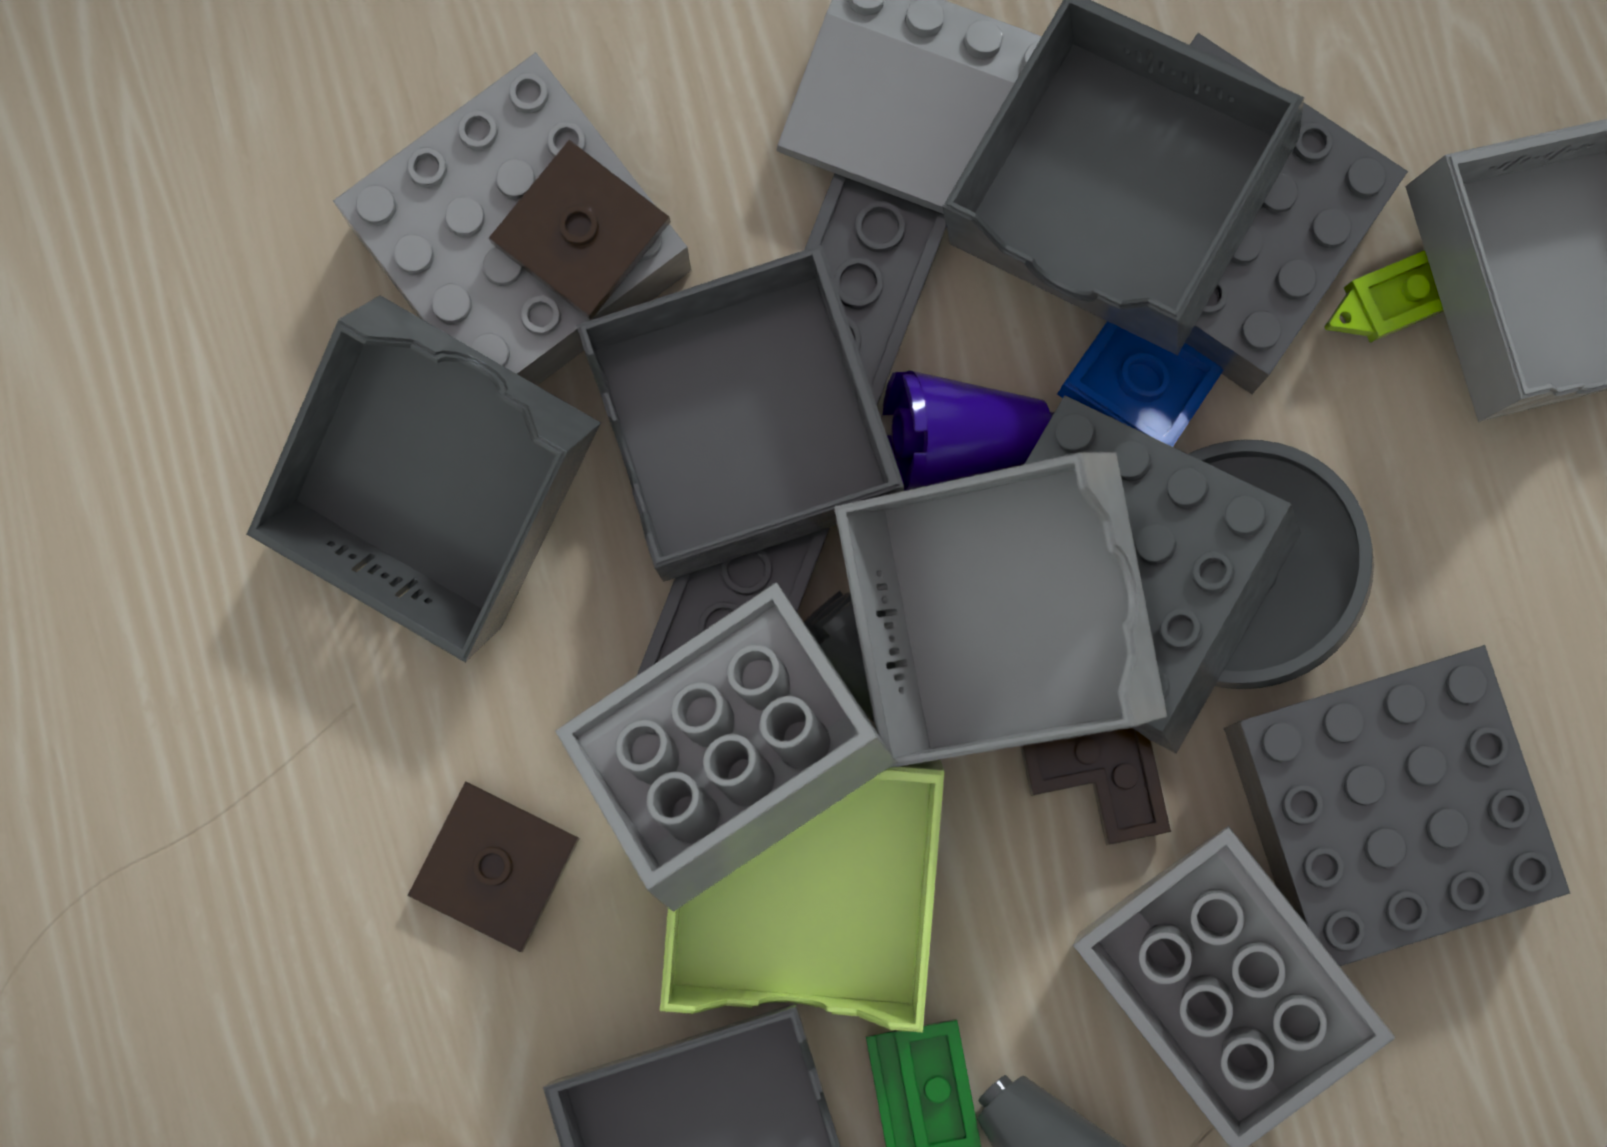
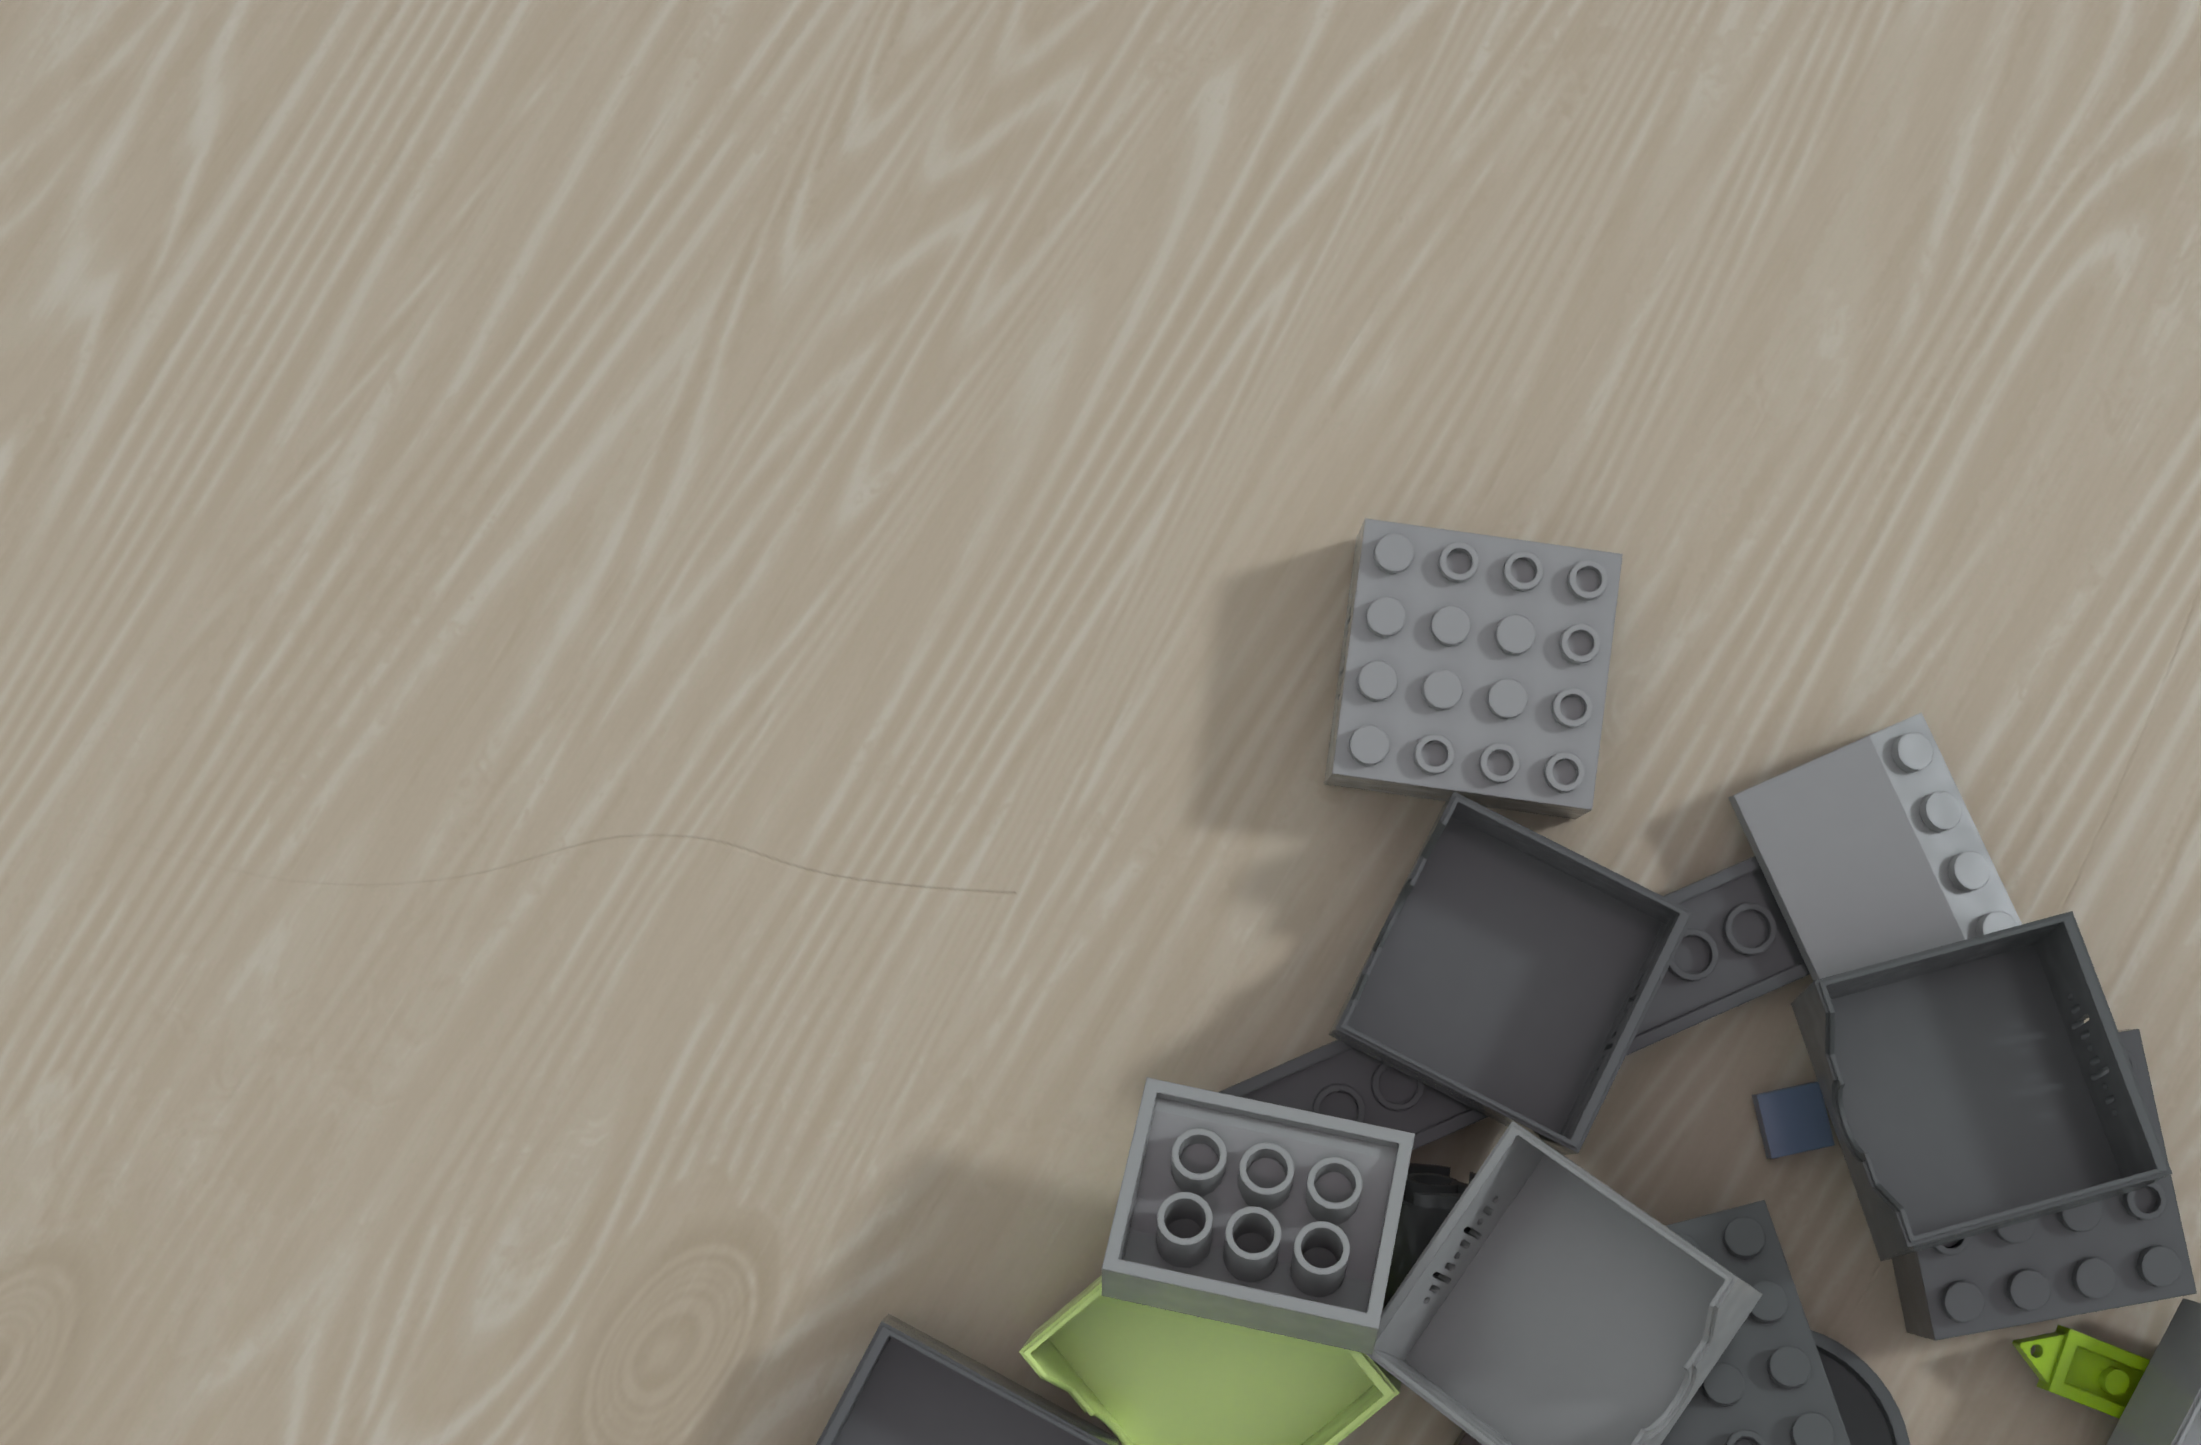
camera: 45 degrees right, 0 degrees up
(424, 473) = (1235, 787): dark grey piece -> none
(493, 866) = (999, 1115): dark brown plate -> none
(579, 229) = (1526, 721): dark brown plate -> none
(958, 428) = (1660, 1143): dark purple cone -> none
(1036, 327) = (1793, 1120): none -> sand blue tile
(1141, 382) = (1829, 1243): blue plate -> none

